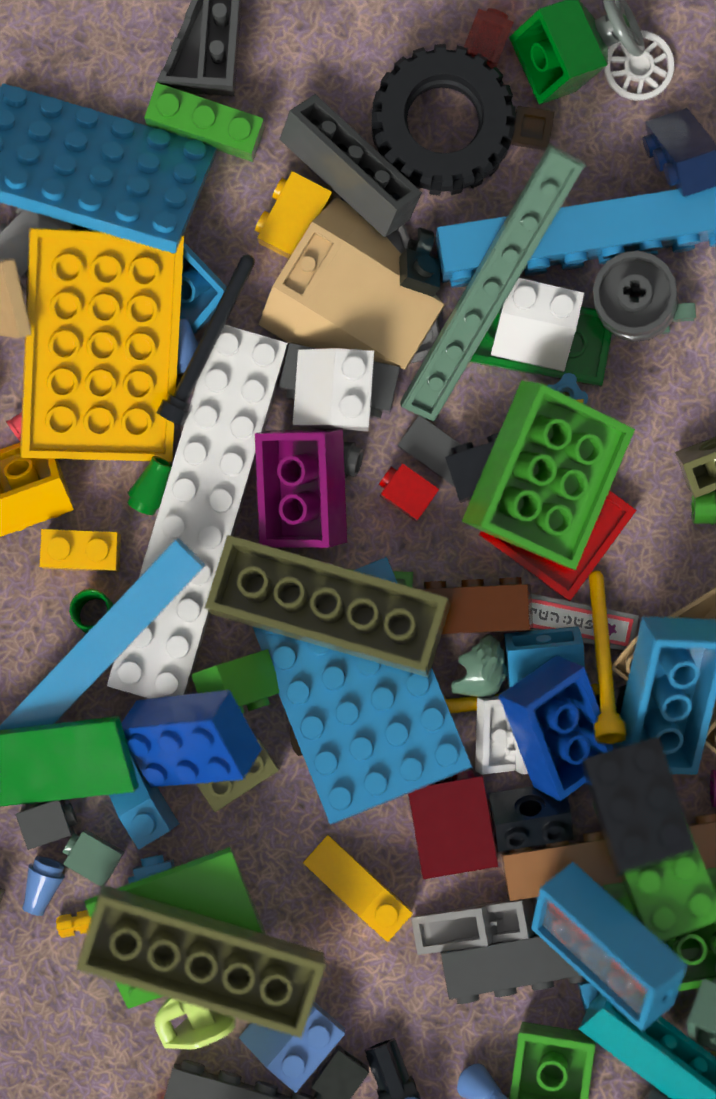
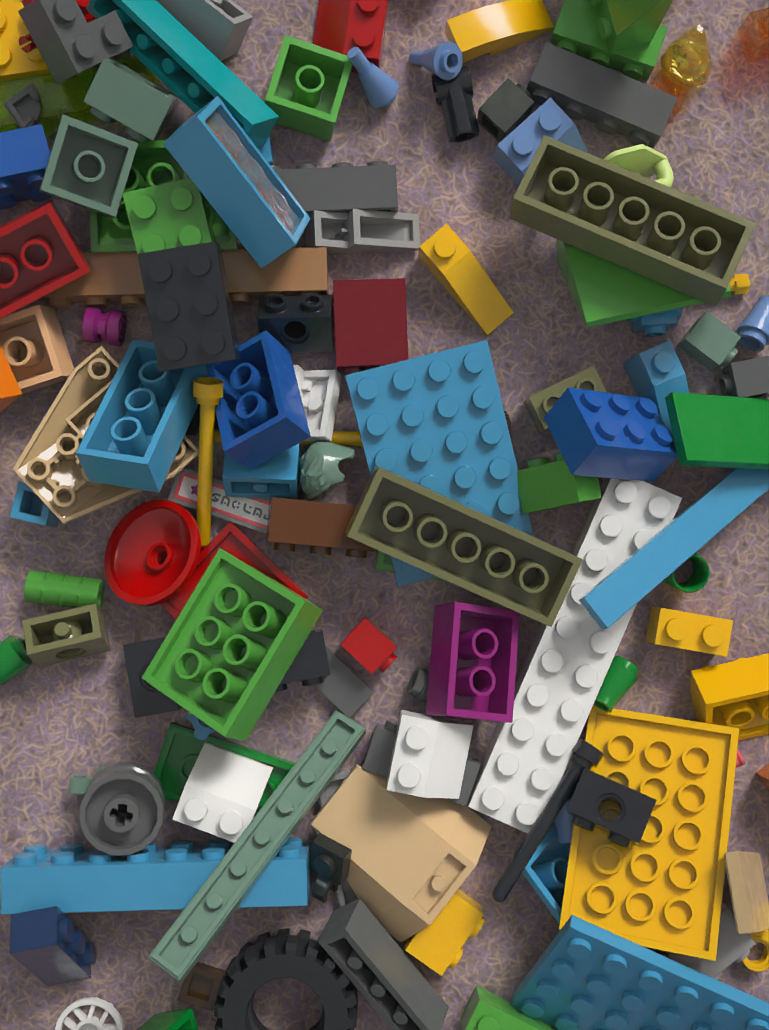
camera: 175 degrees left, 0 degrees up
(162, 376) = (596, 789): none -> black brick
(630, 410) = (145, 697): none -> black brick
(660, 560) = (138, 551): none -> red dish

